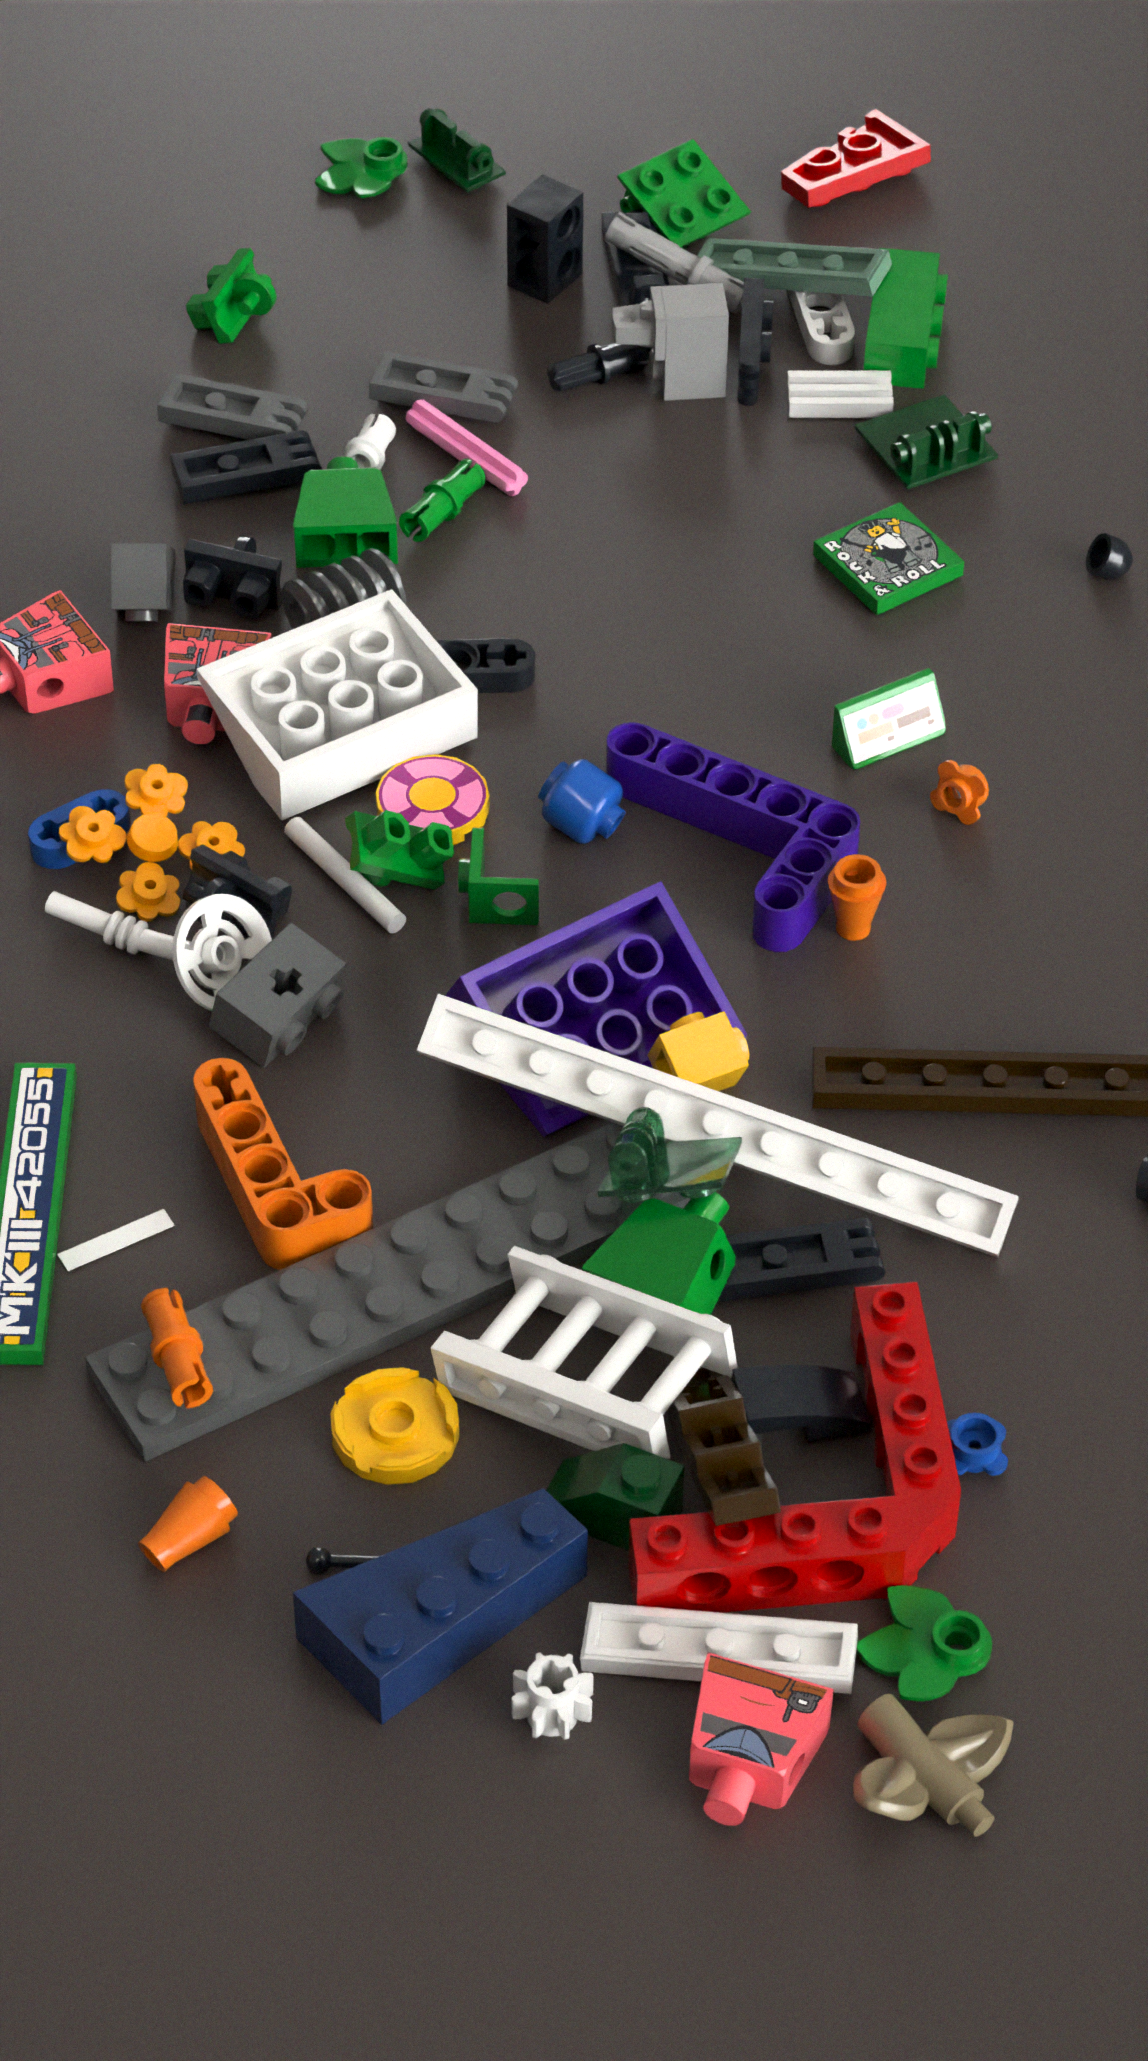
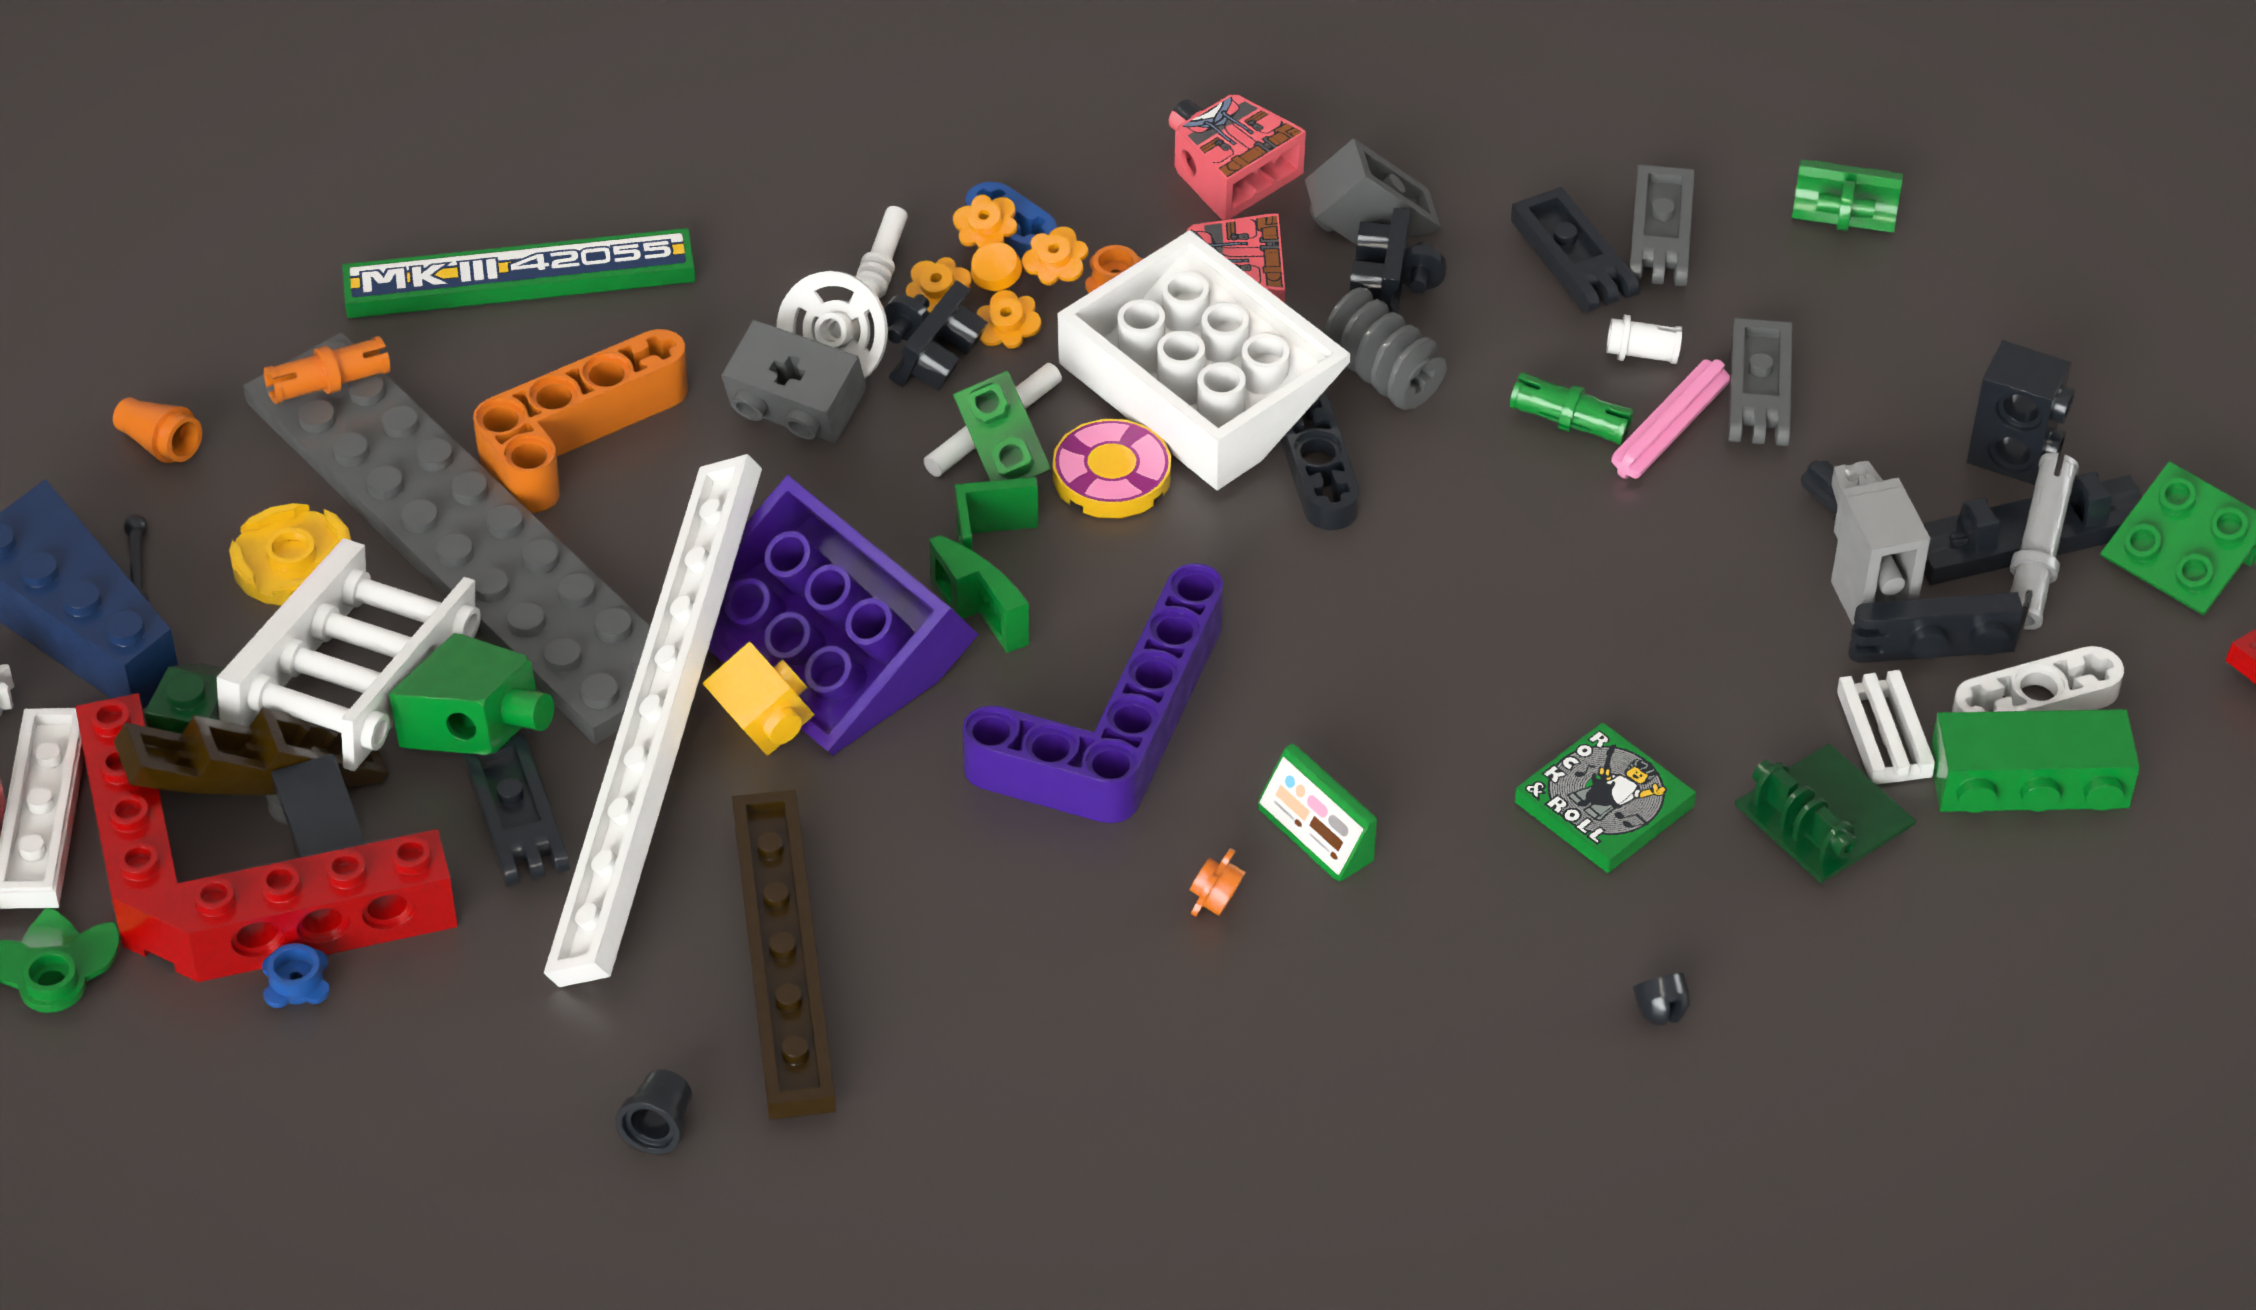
camera: 80 degrees right, 0 degrees up
(115, 1240) = (499, 341): white sticker -> none
(181, 757) = (1109, 263): none -> orange plate
(343, 515) = (1514, 329): green torso -> none
(362, 166) = (2140, 273): green plate -> none
(454, 152) = (2191, 339): dark green hinge -> none
(582, 801) = (1120, 571): blue head -> none
(585, 893) = (976, 586): none -> green slope
(649, 1165) = (570, 667): clear green hinge -> none
(801, 265) = (2073, 642): sand green tile -> none
(855, 891) = (1012, 793): orange cone -> none

